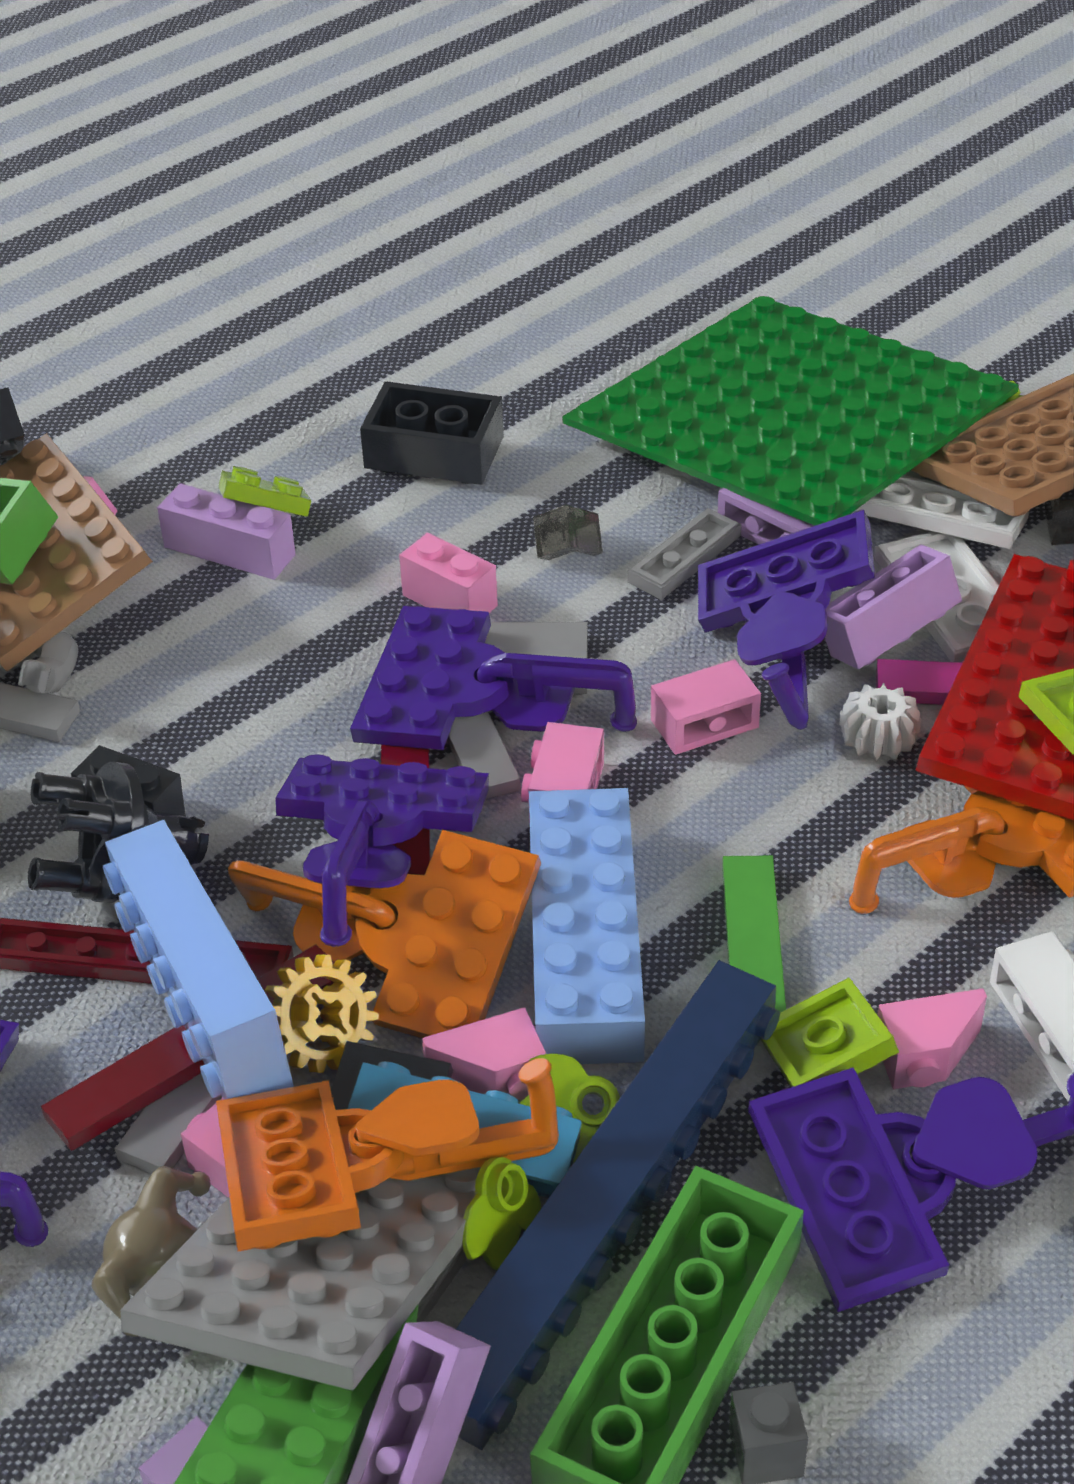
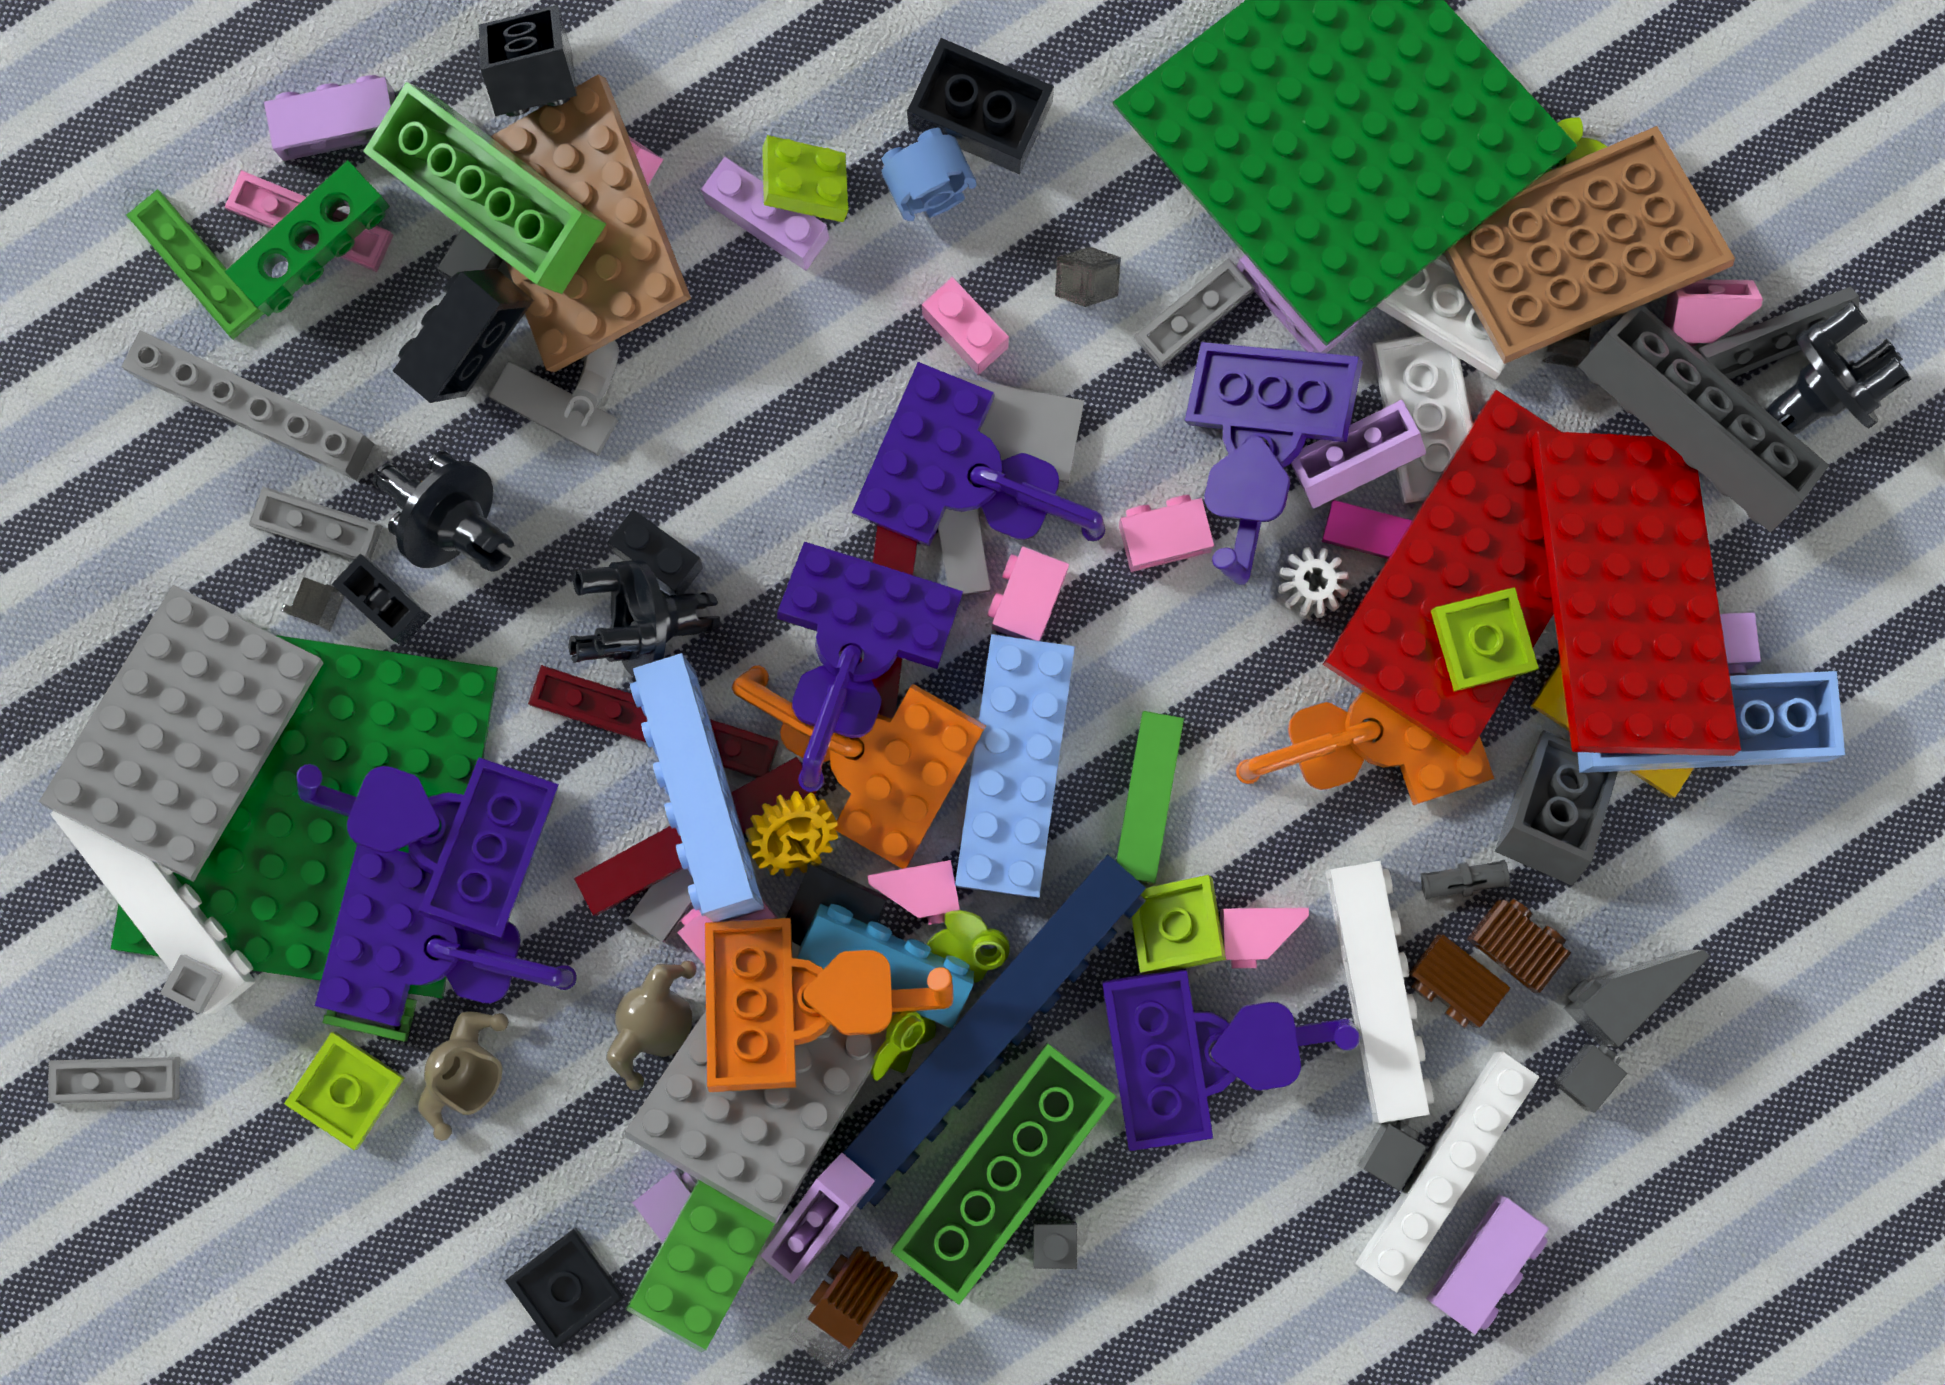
camera: 10 degrees right, 40 degrees up
(389, 477) = (927, 175): none -> medium blue brick

